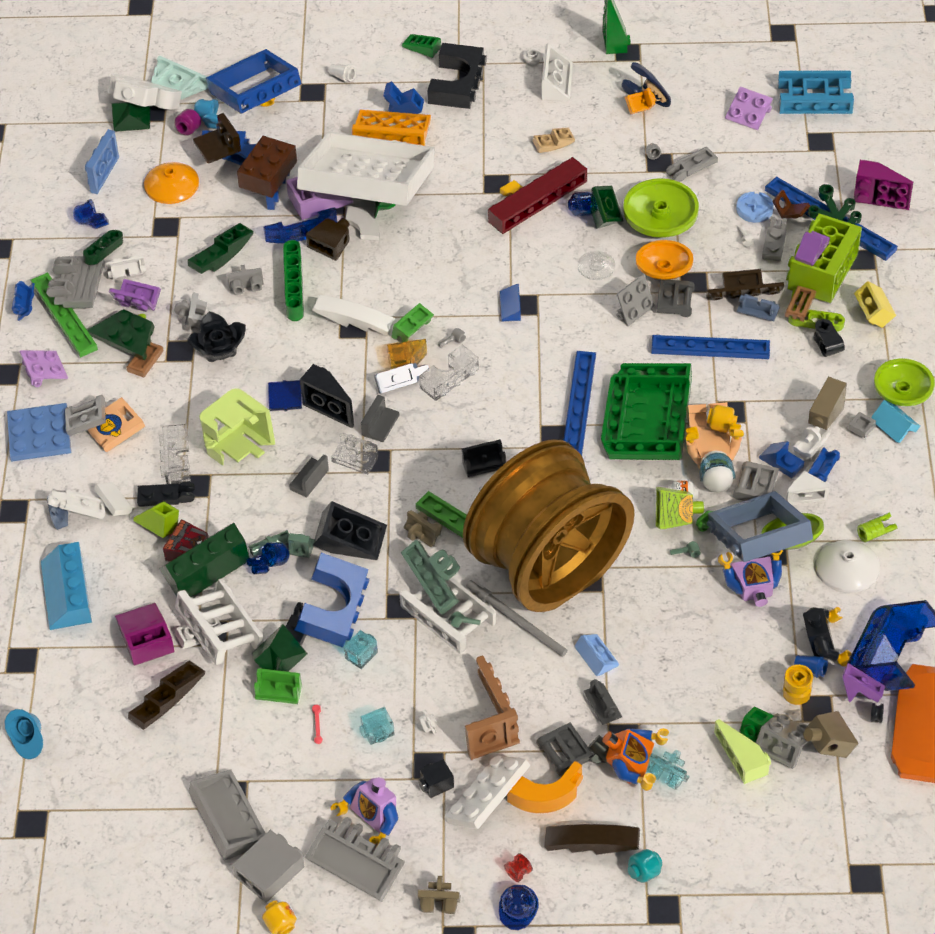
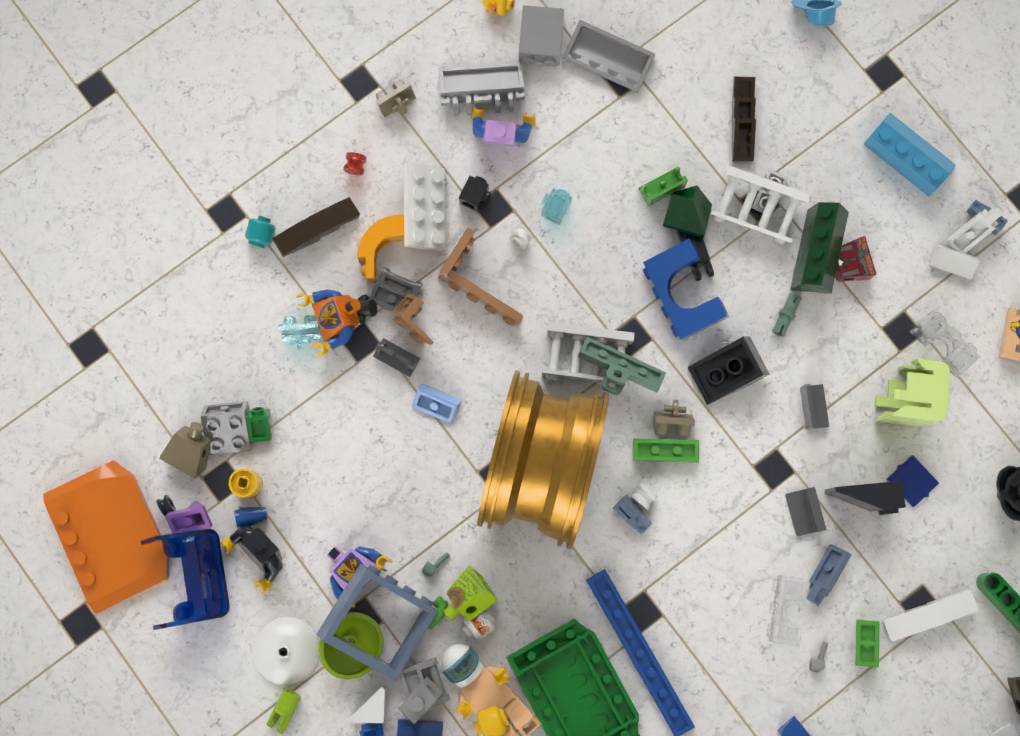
camera: 140 degrees right, 30 degrees up
(145, 633) = (811, 156): magenta slope -> none
(155, 494) = (919, 299): black hinge -> none
(159, 519) = (897, 265): lime slope -> none
(272, 555) = (773, 296): clear blue piece -> none
(300, 545) = (759, 329): sand green bracket -> none
(316, 710) = (618, 192): coral hinge -> none
(355, 453) = (795, 457): clear bracket -> none
(361, 649) = (626, 265): clear light blue brick -> none
(406, 352) = (843, 601): clear yellow slope -> none
(457, 618) = (563, 344): sand green hand -> none
(483, 458) = (679, 533): black hinge -> none
(486, 596) = (495, 387): light grey bar -> none
(518, 907) = (333, 135): clear blue piece -> none
(566, 709) = (408, 308): none -> medium nougat bracket
(744, 753) = (248, 387): yellowish green slope -> none
(765, 463) = (420, 700): none -> light grey torso

